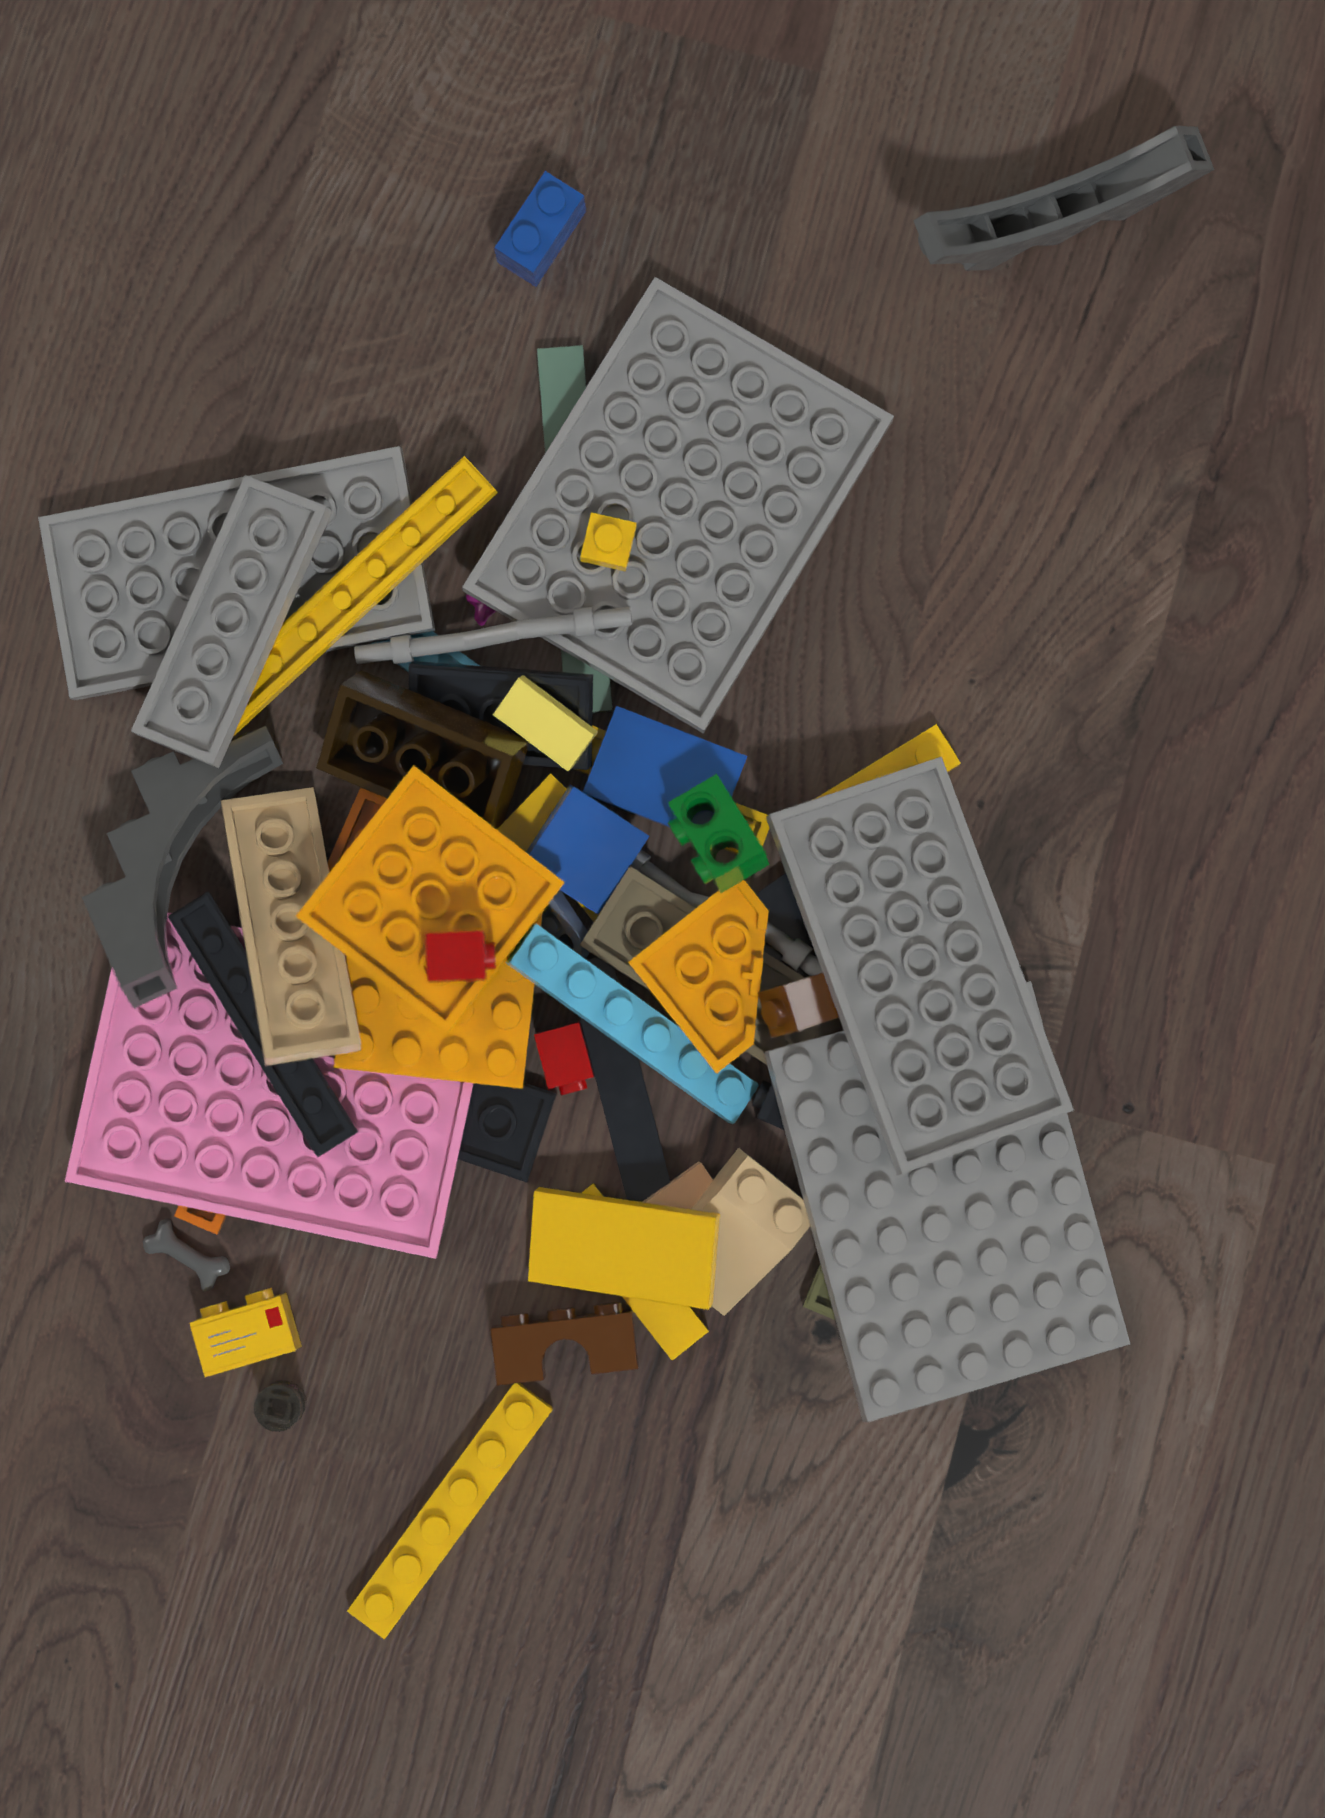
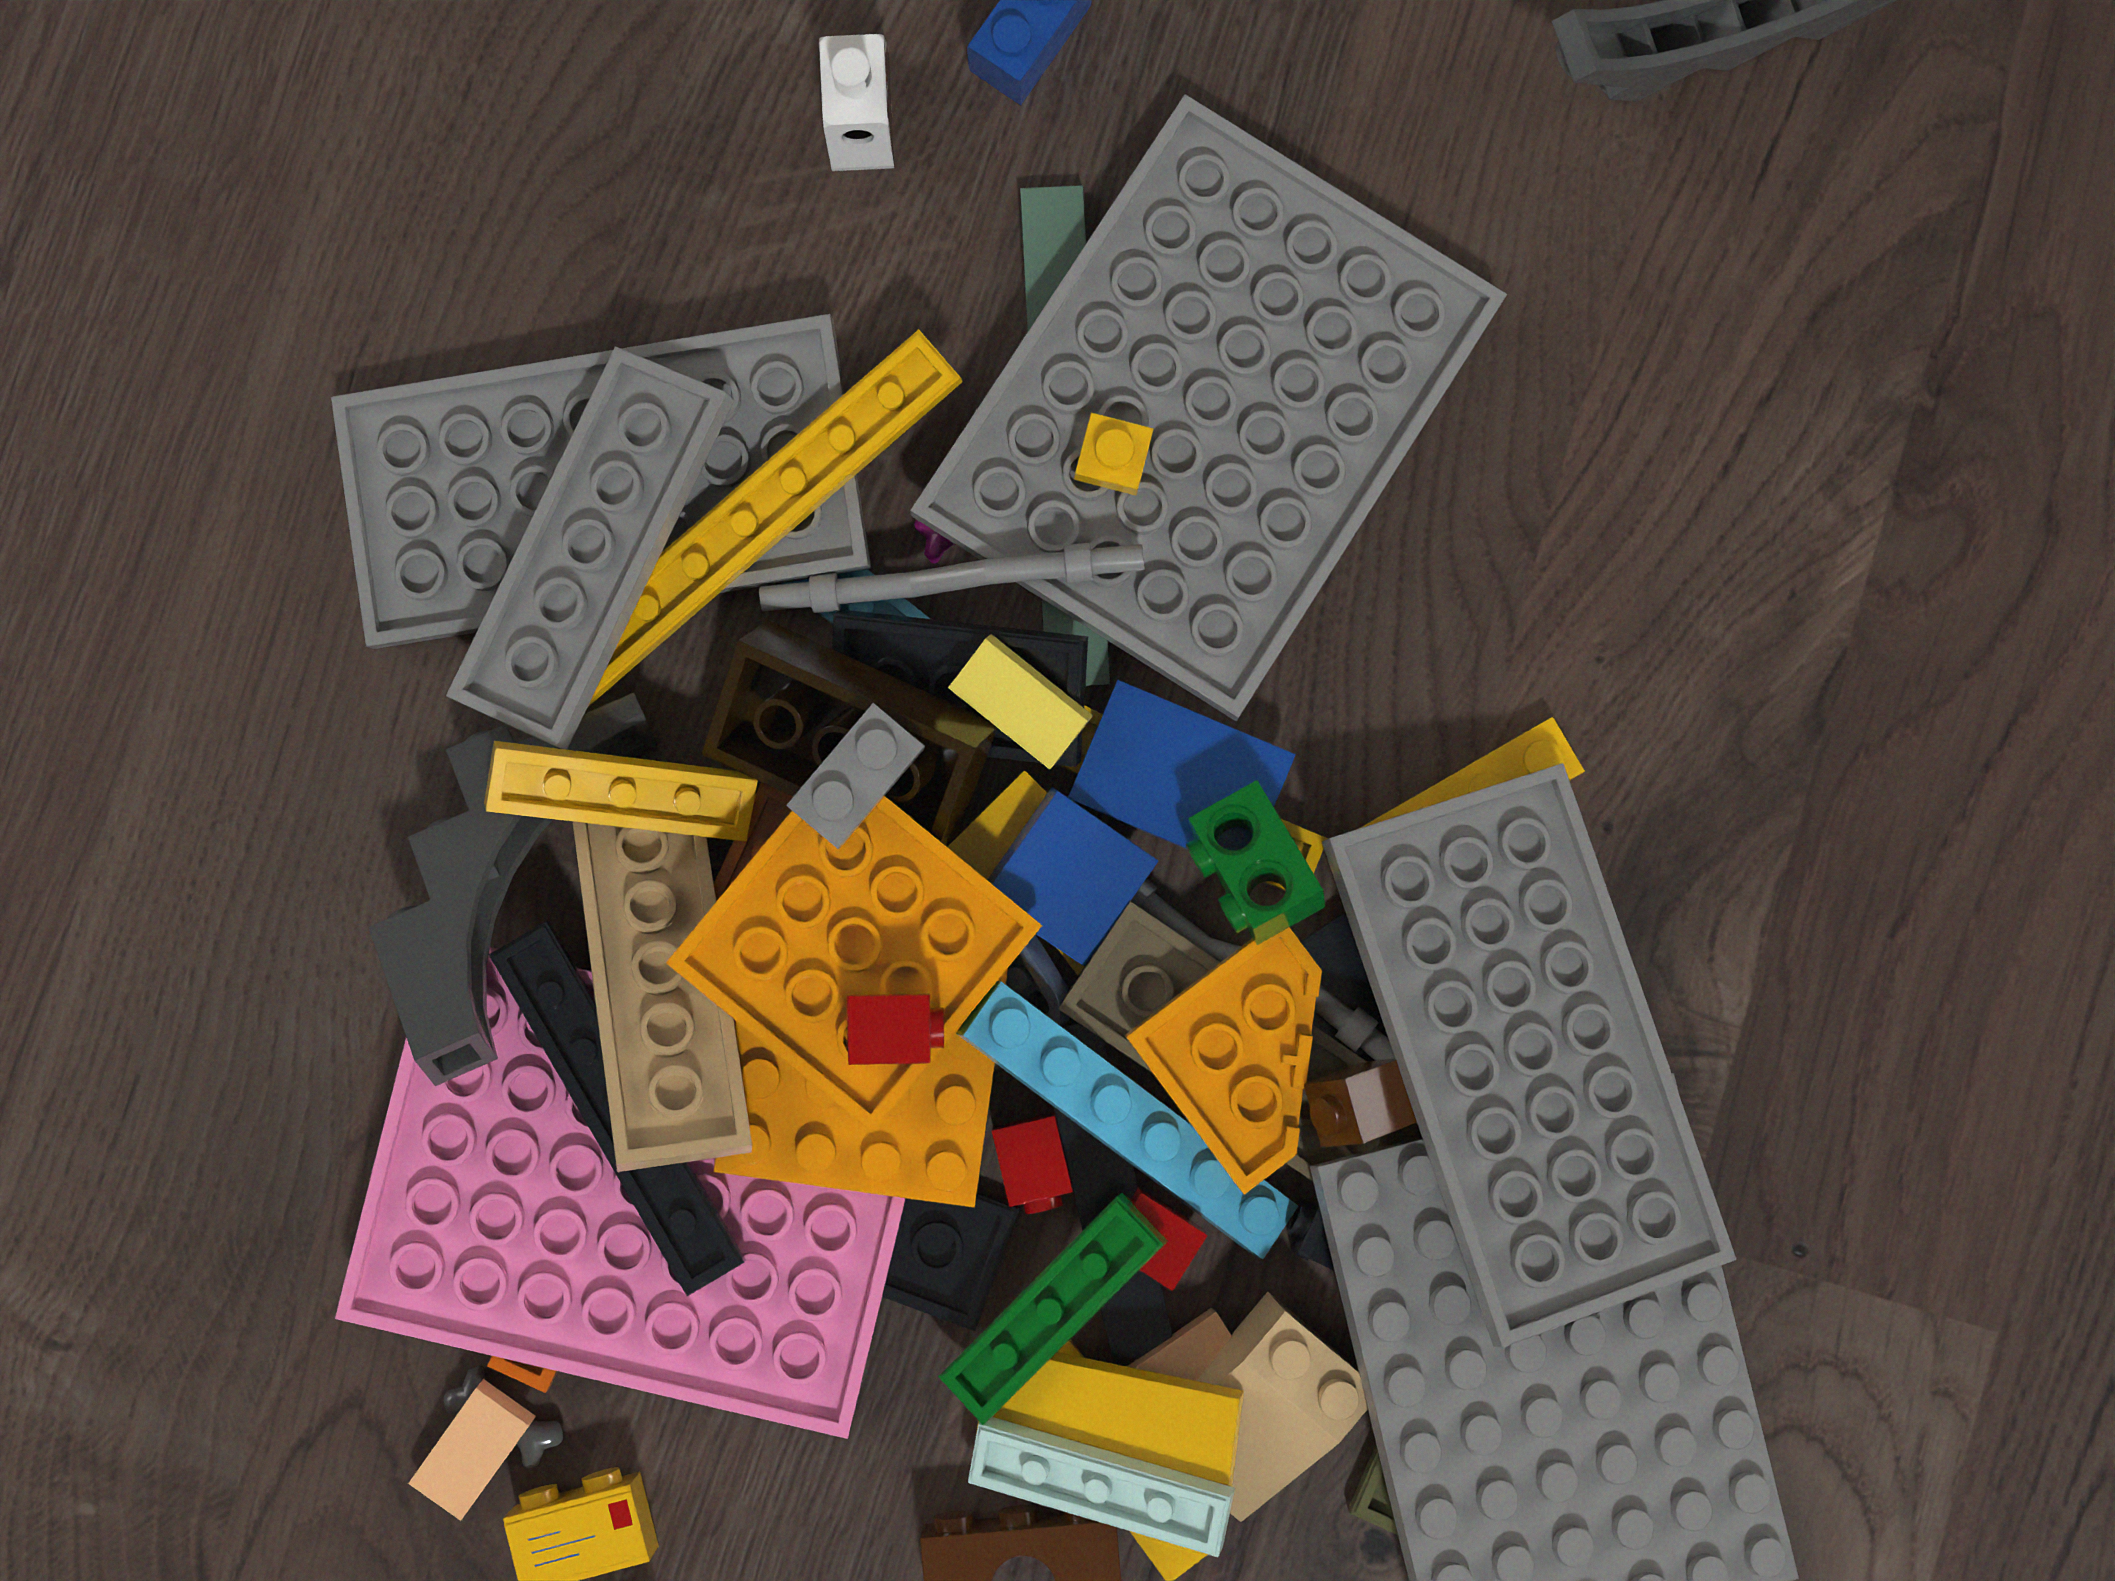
camera: 10 degrees left, 0 degrees up
(164, 1277) = (472, 1449): none -> light nougat tile
(258, 796) = (619, 791): none -> yellow plate
(415, 288) = (856, 98): none -> white torso
(427, 778) = (855, 776): none -> light grey plate
(581, 1159) = (1053, 1308): none -> green tile
(619, 1286) = (1101, 1485): none -> light aqua tile
(652, 1108) = (1182, 1235): none -> red brick

